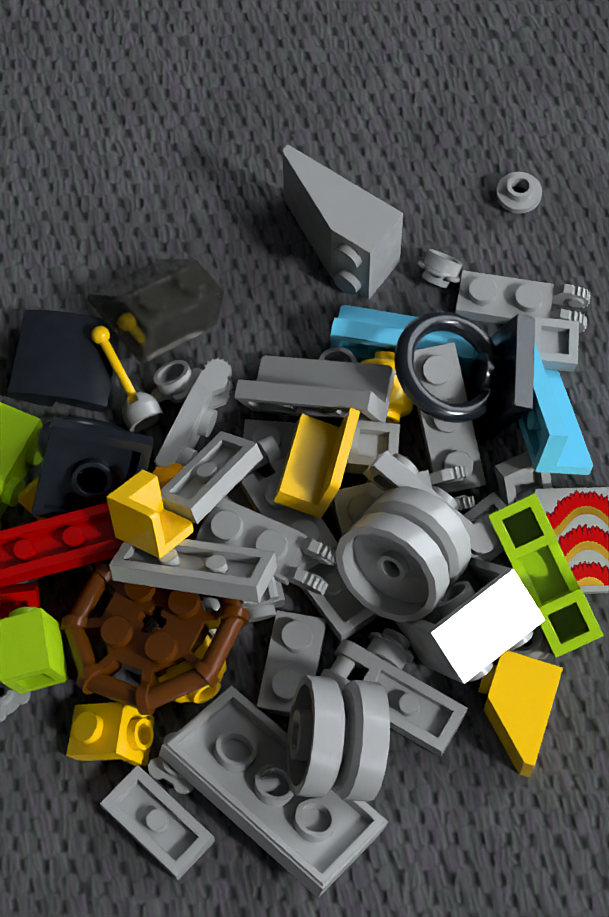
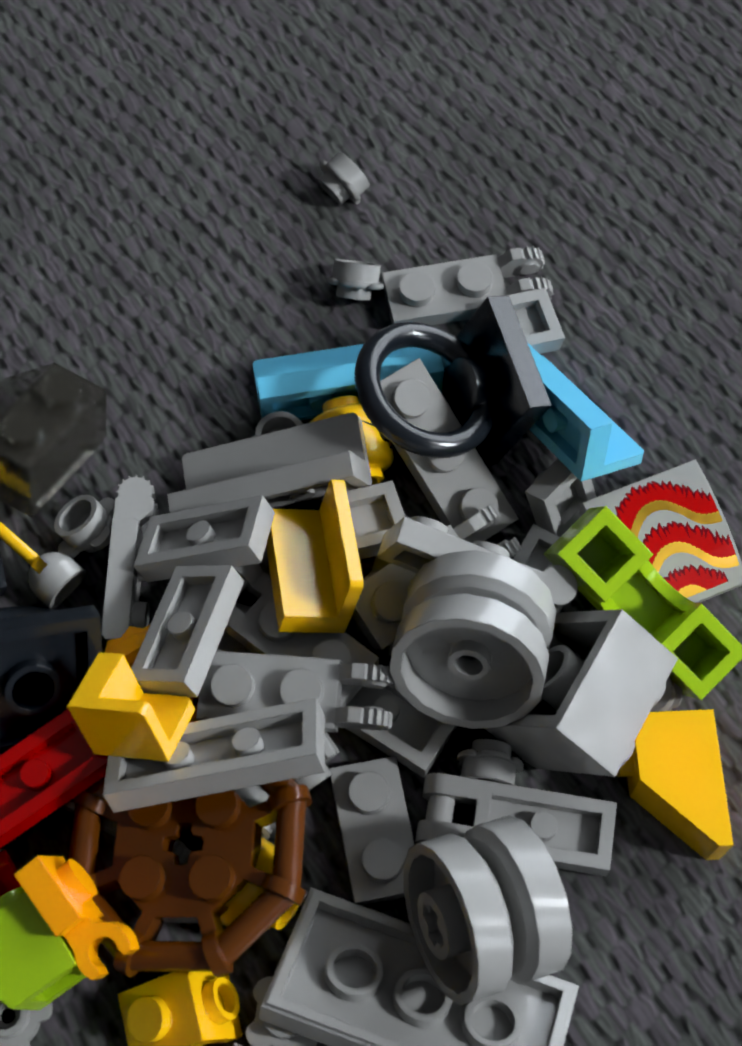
camera: 25 degrees left, 0 degrees up
(60, 626) = (64, 899): none -> light orange plate
(250, 417) = (205, 536): none -> light grey plate
(345, 224) = (217, 258): light grey slope -> none
(462, 190) = (342, 179): none -> light grey plate
(515, 201) = (408, 173): light grey plate -> none

